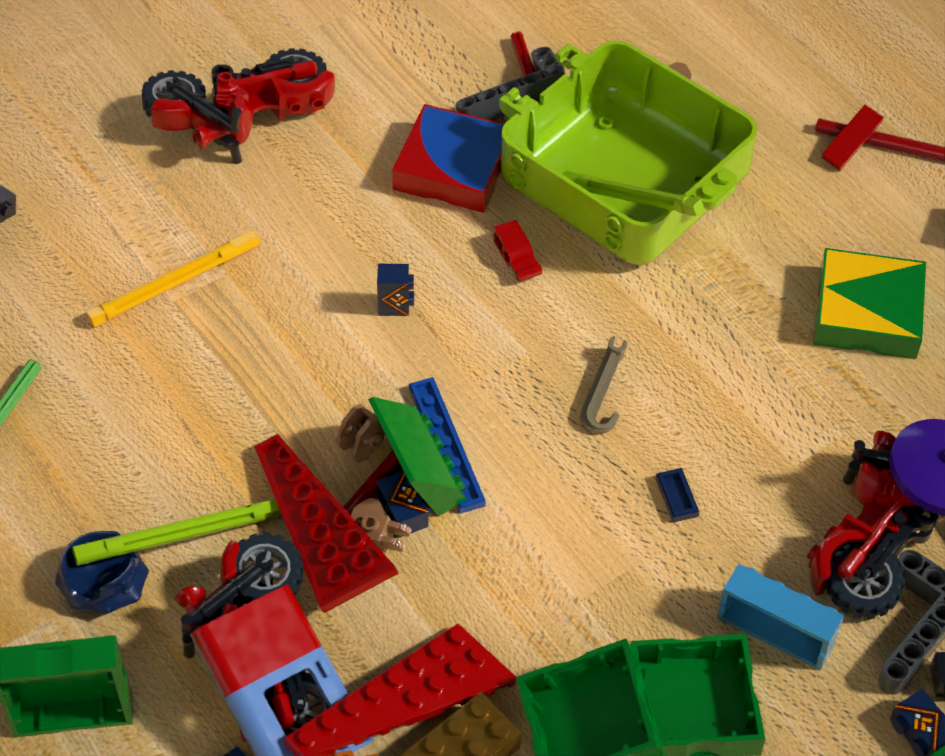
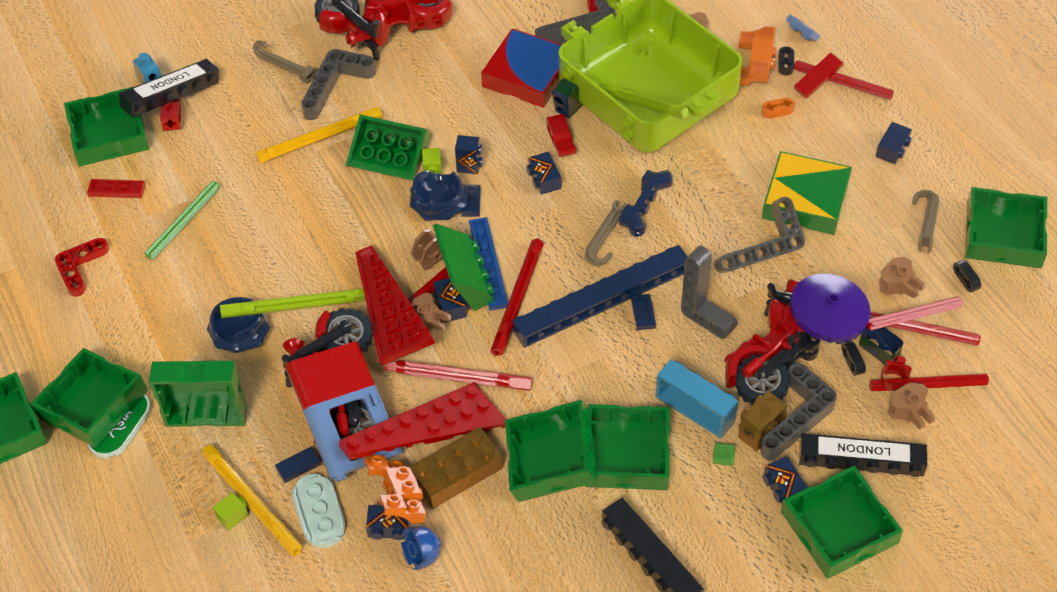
camera: 10 degrees right, 0 degrees up
(139, 192) = (304, 74): none -> dark tan piece
(180, 173) = (334, 64): none -> dark grey beam
(276, 289) = (387, 147): none -> green slope
(342, 304) = (432, 160): none -> lime brick
(360, 353) = (437, 195): none -> dark blue piece
(406, 355) = (473, 202): none -> dark blue tile
(436, 614) = (460, 374): none -> piece
(496, 494) = (515, 301): none -> red piece
(503, 306) = (543, 173): none -> dark blue brick
(517, 197) = (566, 98): none -> piece
(614, 478) = (599, 296): none -> dark blue brick
(637, 356) = (632, 216): none -> dark blue plate
(749, 472) = (694, 296): none -> dark grey beam
(770, 113) = (762, 50): none -> orange bracket
(798, 120) = (789, 61): none -> black beam
(804, 188) = (778, 108): none -> orange beam
(809, 69) = (807, 33): none -> medium blue plate
(829, 693) = (723, 454): none -> bright green tile
(833, 386) = (768, 247): none -> dark grey beam
(876, 639) = (761, 419): none -> pearl gold brick

